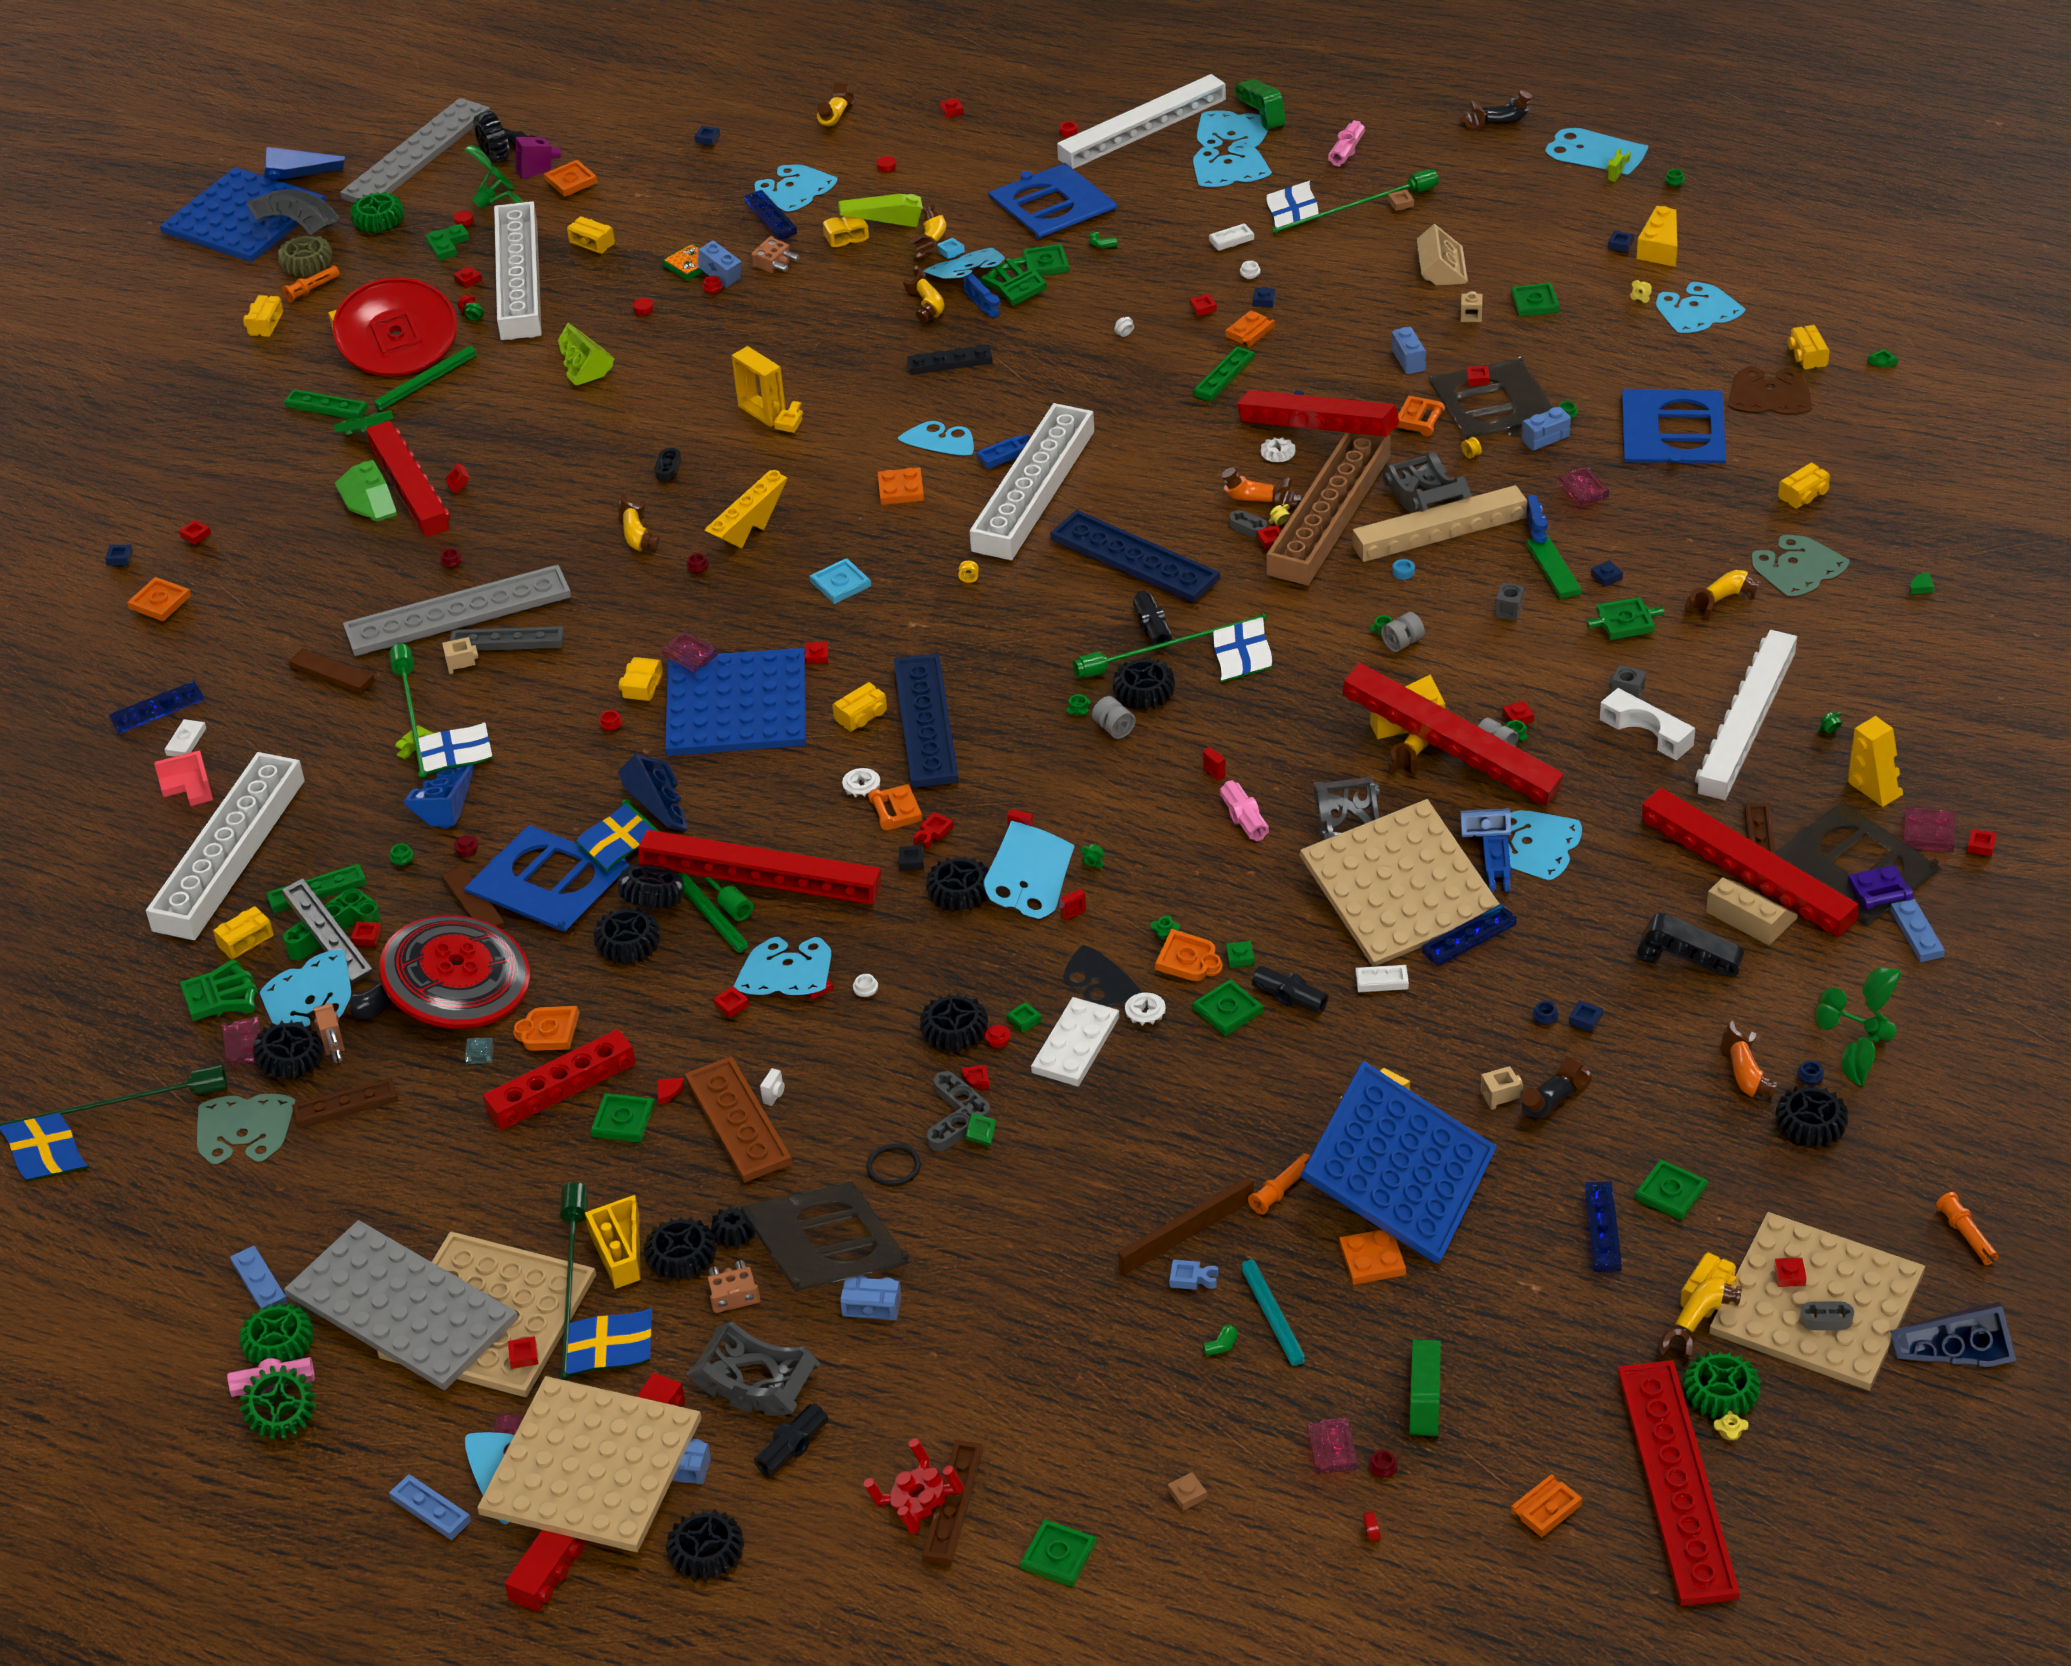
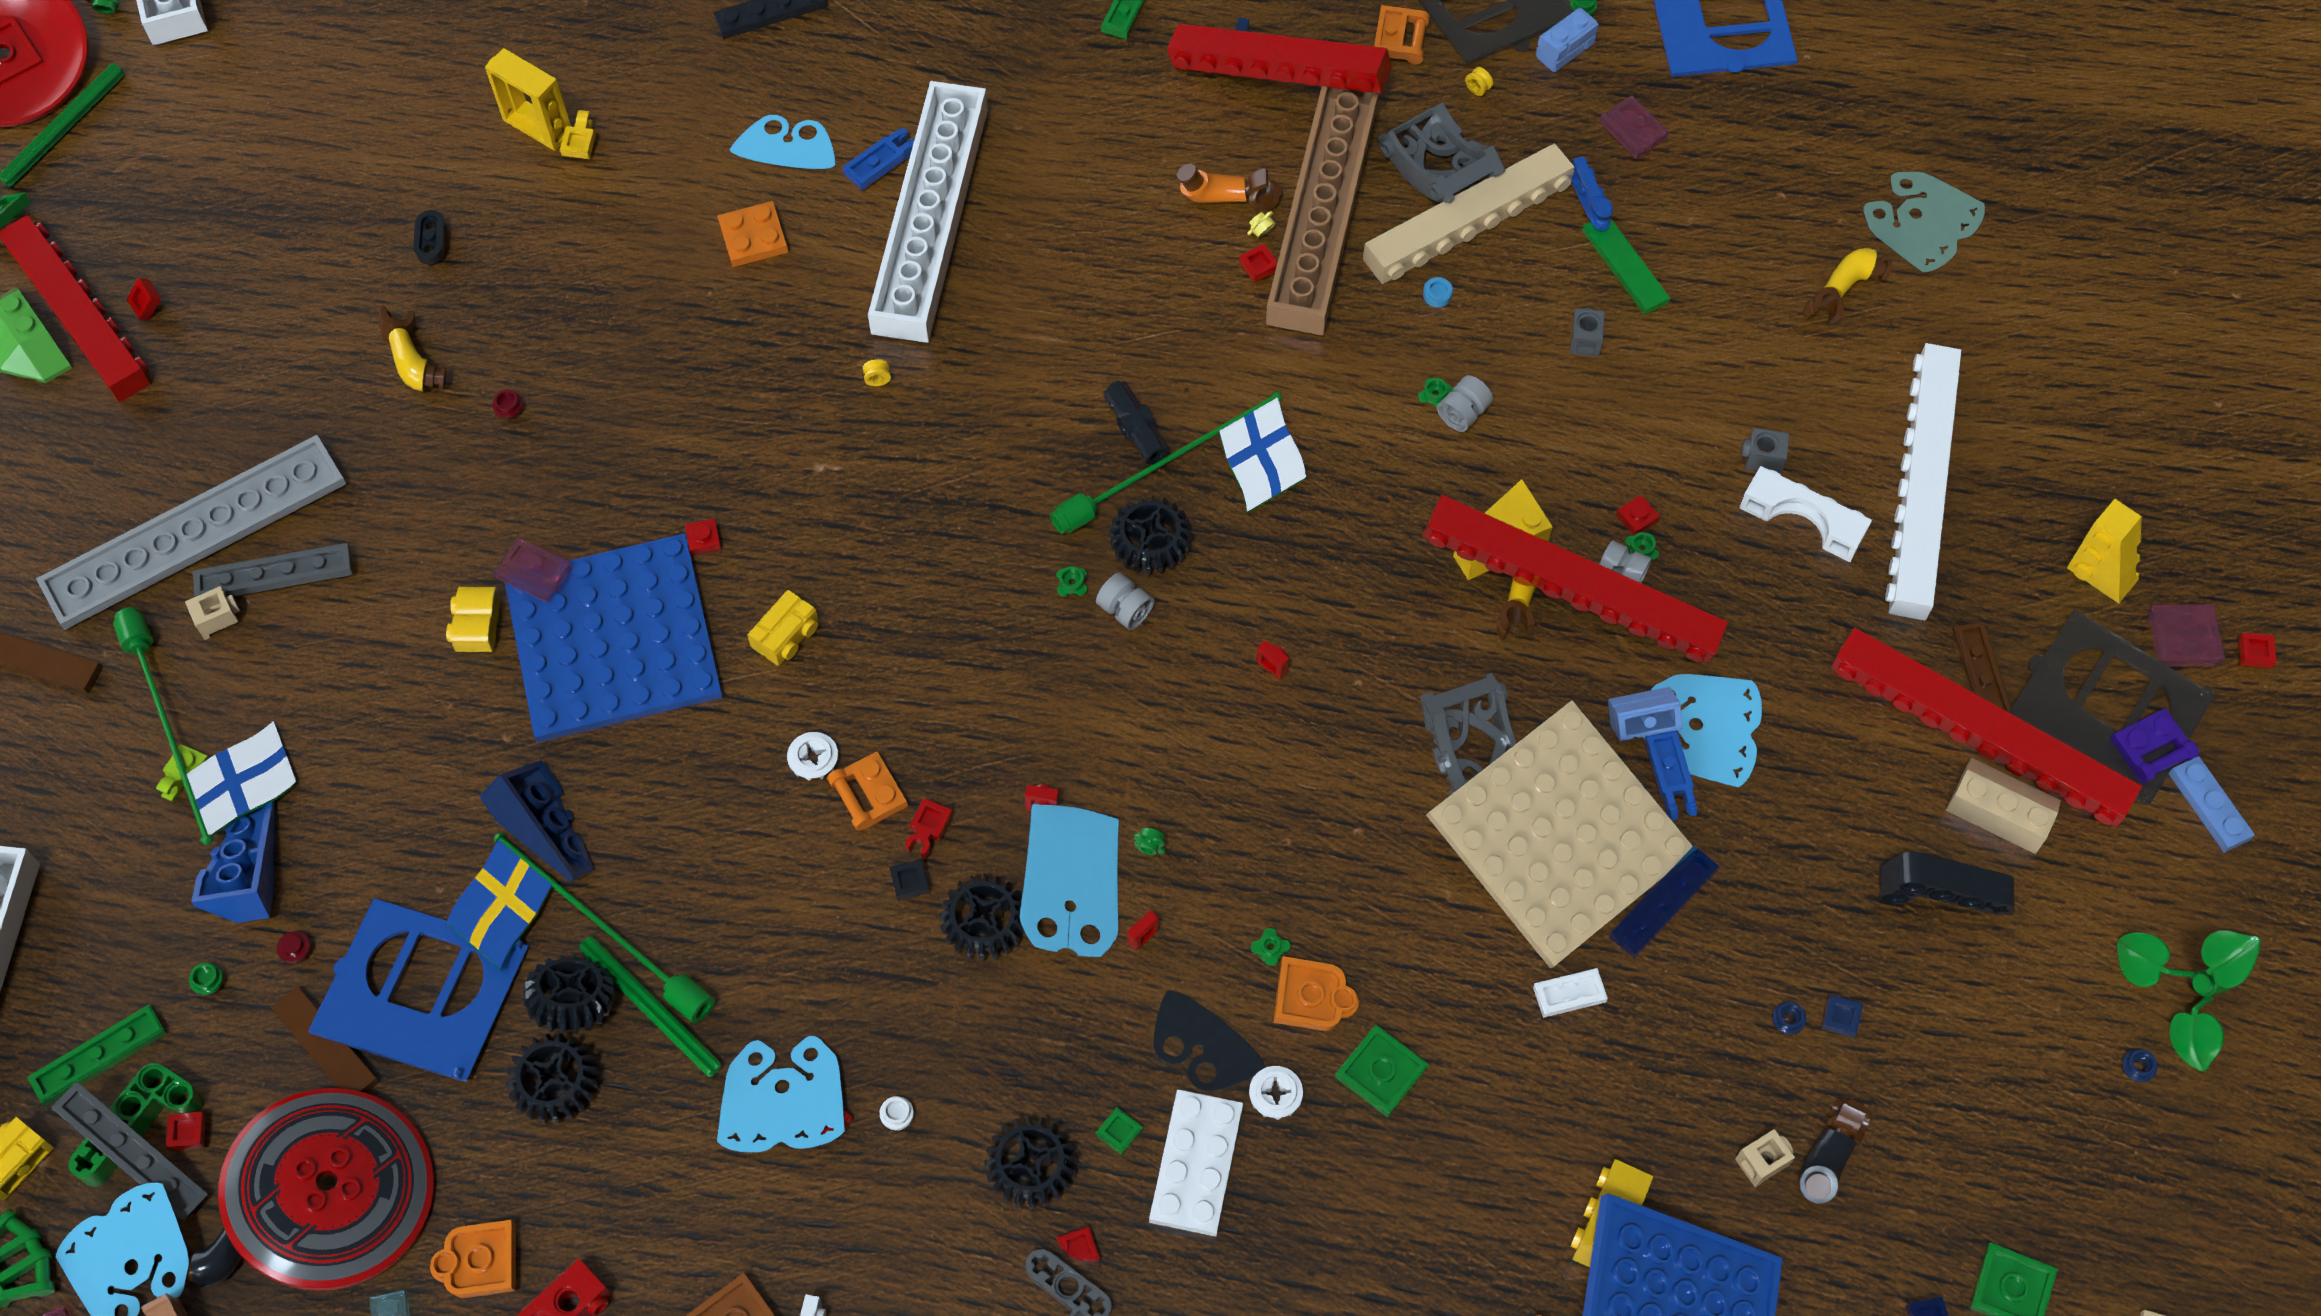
camera: 15 degrees left, 20 degrees up
(450, 558) = (164, 439): dark red plate -> none
(583, 356) = (275, 64): lime wedge -> none
(610, 720) = (448, 697): red plate -> none
(731, 1002) = (721, 1172): red plate -> none
(749, 510) = (561, 314): yellow slope -> none
(761, 866) = (709, 934): red brick -> none
(840, 581) = (707, 407): medium azure tile -> none
(925, 720) = (876, 638): dark blue plate -> none
(997, 1036) = (1092, 1171): red plate -> none
(1135, 556) = (1089, 317): dark blue plate -> none
(1240, 954) = (1377, 977): green plate -> none
(1244, 810) = (1329, 733): bright pink piece -> none
(1246, 523) = (1223, 242): dark grey beam -> none
(1271, 453) = (1226, 120): white gear -> none
(1290, 989) = (1458, 1032): black piece -> none
(1606, 573) = (1694, 266): dark blue plate -> none
(1625, 618) = (1736, 340): green plate -> none
(1745, 1069) = (2063, 1078): piece -> none
(1804, 485) = (1905, 94): yellow brick -> none
(1813, 1110) = (2146, 1117): black gear -> none
(1830, 722) = (2029, 479): green plate -> none
(1922, 584) = (2083, 234): green tile -> none

